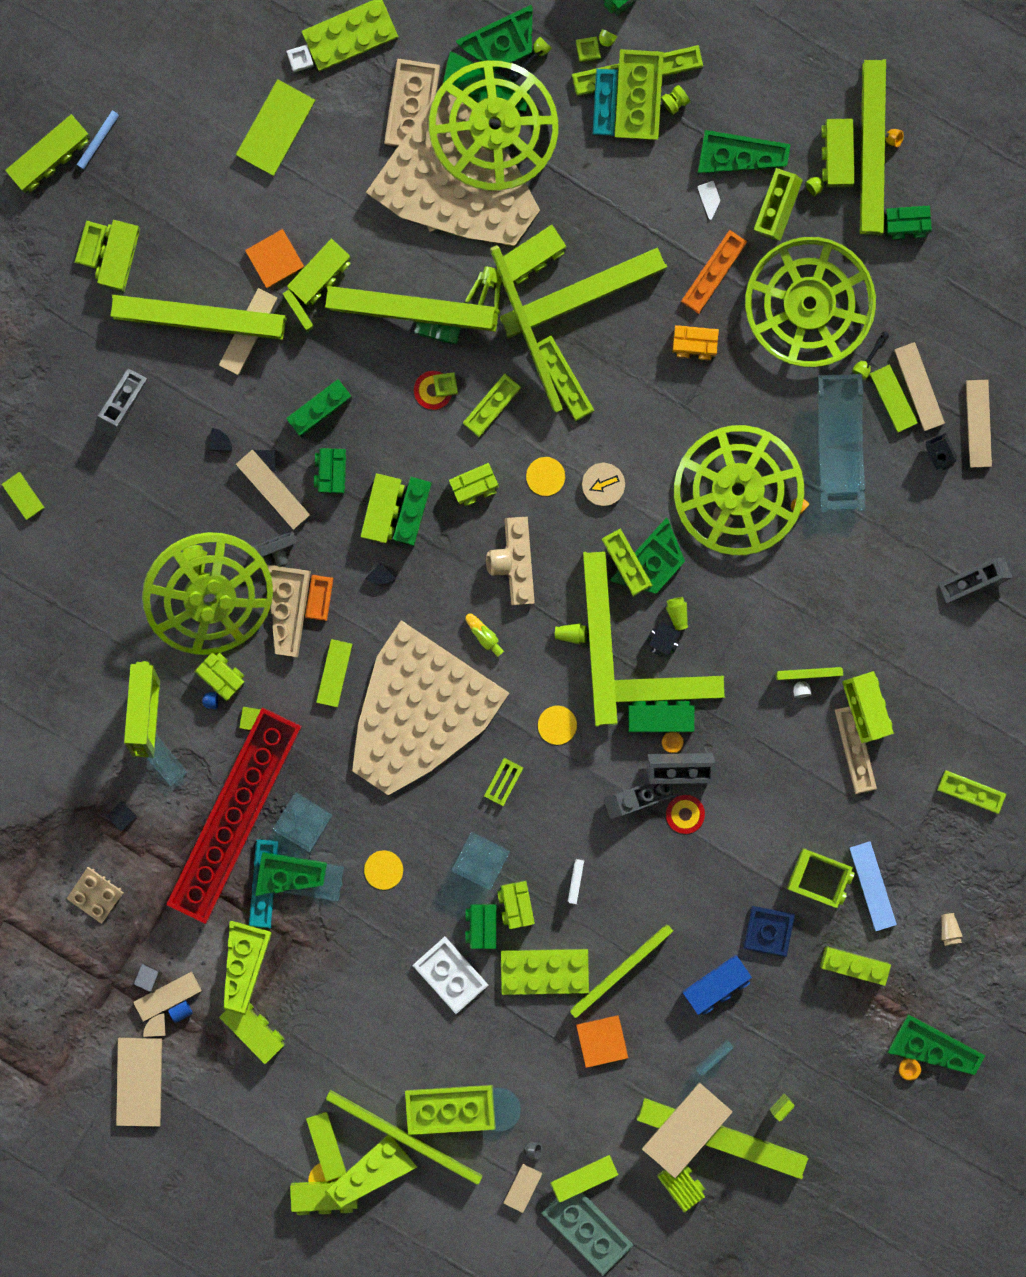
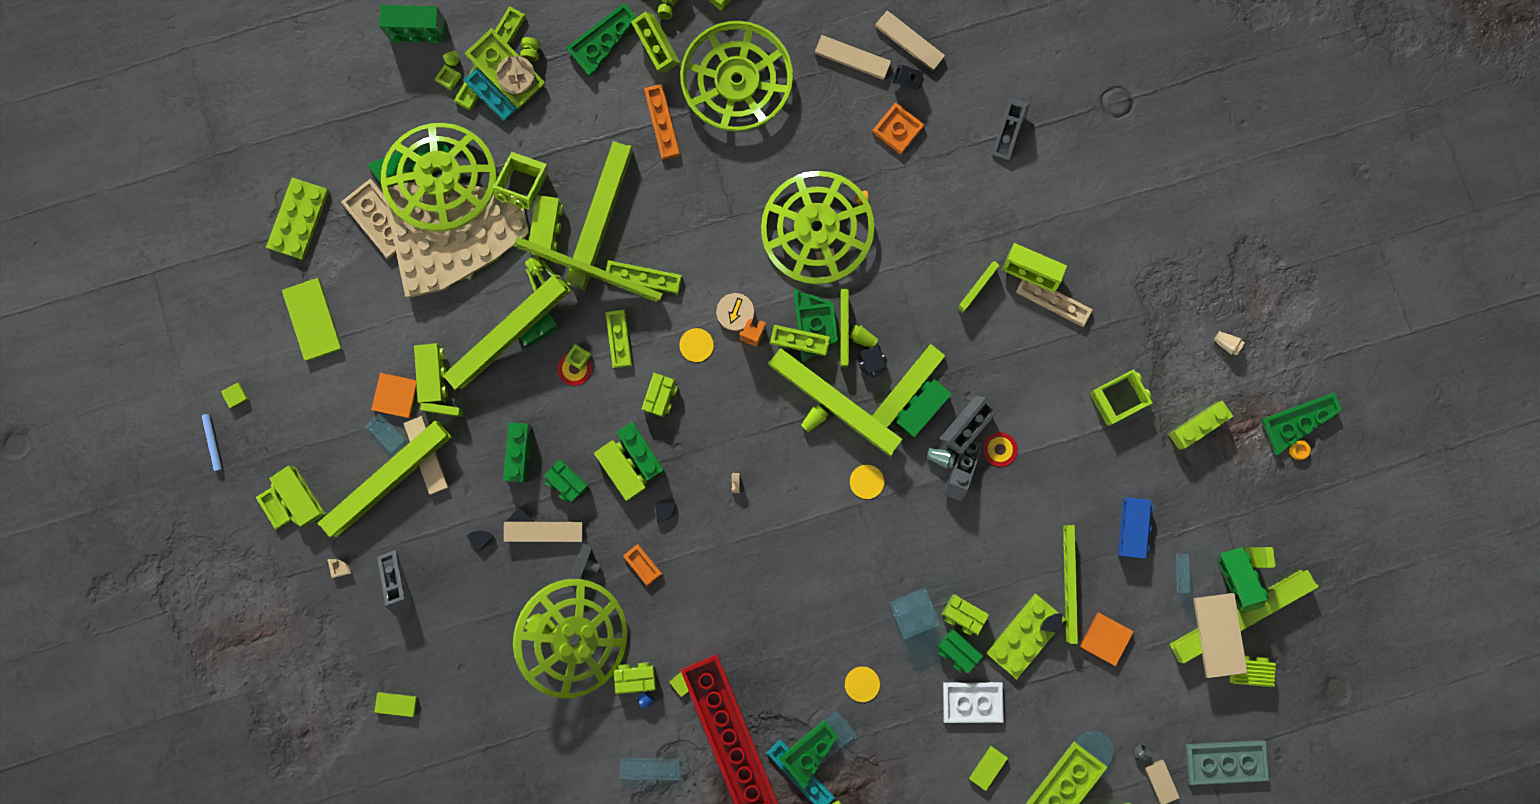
camera: 45 degrees left, 5 degrees down
(48, 153) = (188, 483): lime brick -> none
(90, 345) = (338, 568): none -> tan tile
(142, 710) = (608, 756): lime window -> none
(153, 122) = (234, 395): none -> lime tile
(236, 280) = (386, 433): none -> clear light blue tile
(288, 608) = (630, 591): tan wing -> none
(300, 58) = (283, 264): white tile -> none
(302, 822) = (782, 711): clear light blue brick -> none
(334, 673) = (701, 599): lime tile -> none
(407, 1034) = (988, 768): none -> lime tile
(419, 710) = (776, 565): tan wing -> none
(458, 614) = (736, 482): none -> tan tile
(484, 634) = (767, 477): lime piece -> none
(495, 798) = (879, 566): lime tile -> none
(501, 40) = (391, 122): green wing -> none
(514, 561) = (733, 413): tan plate -> none
(540, 48) = (419, 105): hinge -> none
(570, 191) = (524, 165): none -> lime window
(574, 983) = (1052, 623): none -> black tile
(575, 881) = (983, 561): white tile -> none
(584, 1178) = (1191, 735): lime tile -> none
(594, 518) = (752, 334): none -> orange hinge
(634, 771) = (942, 457): none -> sand green cone
(641, 110) = (515, 75): none -> tan tile
(670, 591) = (844, 328): none -> lime tile
(672, 742) = (945, 415): light orange tile -> none
(695, 341) = (696, 171): light orange brick -> none
(709, 197) = (612, 84): white sticker -> none
(751, 1110) = (1242, 580): none -> green brick
(769, 931) = (1127, 462): dark blue tile -> none
(802, 690) = (984, 301): white hinge -> none
(840, 440) = (843, 134): clear light blue windscreen -> none
(863, 366) = (809, 82): hinge -> none
(872, 886) = (1155, 368): light blue tile -> none
(890, 482) = (898, 128): none -> orange tile
(893, 398) = (845, 80): lime tile -> none
(971, 792) = (1147, 250): lime tile -> none

